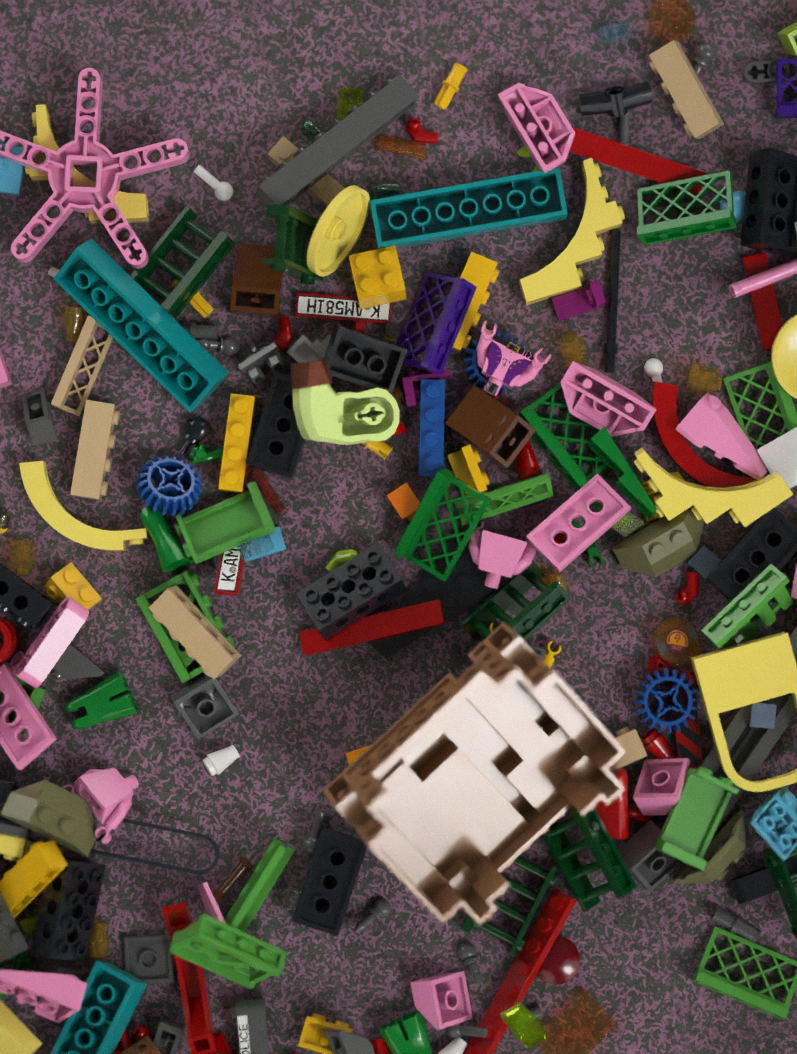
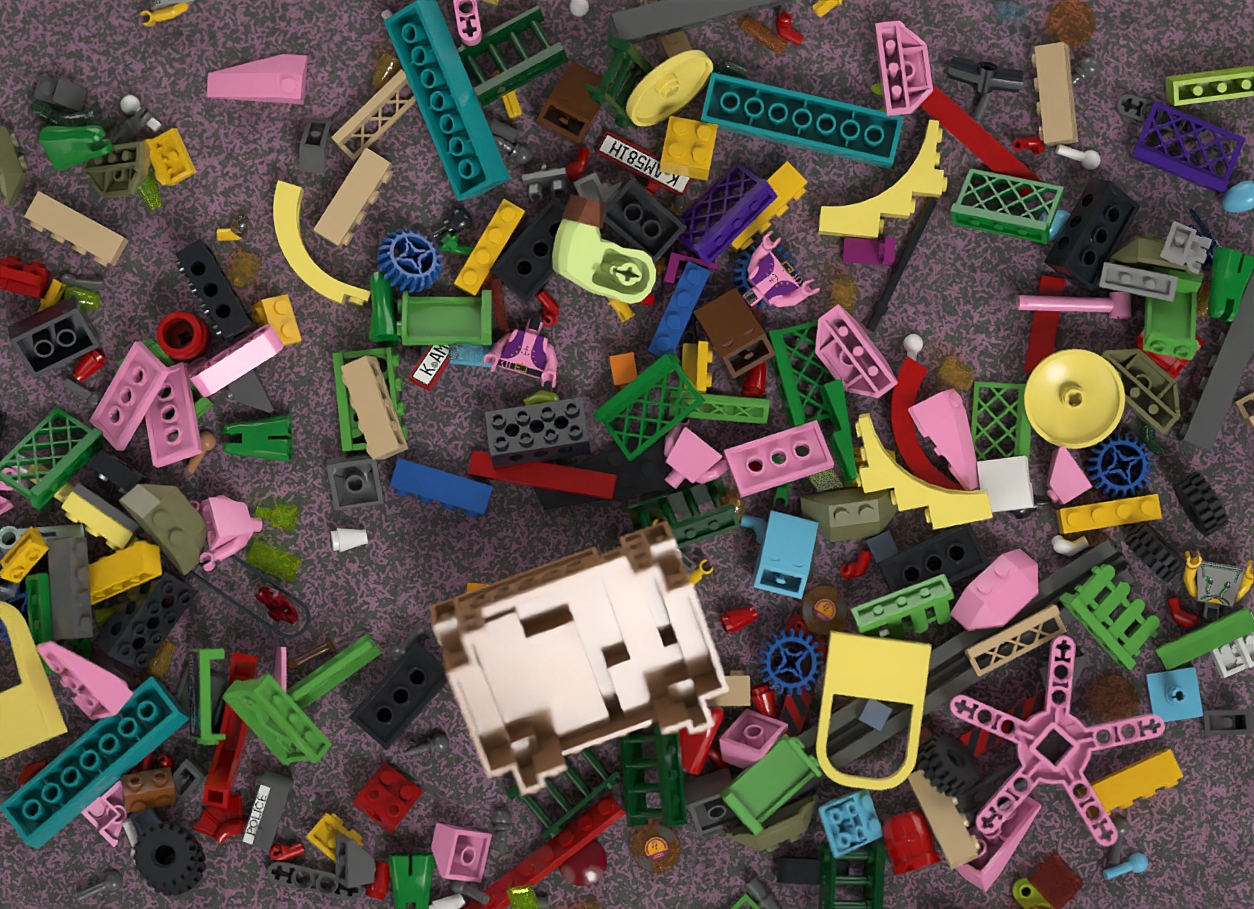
camera: 25 degrees right, 0 degrees up
(56, 726) = (208, 442): none -> nougat bar
(148, 959) = (200, 695): none -> bright green panel
(152, 765) = (282, 517): none -> clear neon green plate
(162, 808) = (273, 560): none -> clear neon green slope
(183, 847) = (279, 606): none -> dark red dish
(284, 677) = (441, 487): none -> blue brick
(309, 524) = (525, 353): none -> bright pink torso
(314, 475) = (550, 308): none -> red arm
(356, 978) = (387, 797): none -> red brick
(587, 591) = (756, 524): none -> medium azure arm
(601, 683) = (737, 618): none -> red cone
(617, 920) = (656, 848): none -> clear orange tile
(621, 606) = (785, 554): none -> medium azure slope
(683, 142) = (1033, 143): none -> red arm
(740, 135) = (1088, 159): none -> white bar

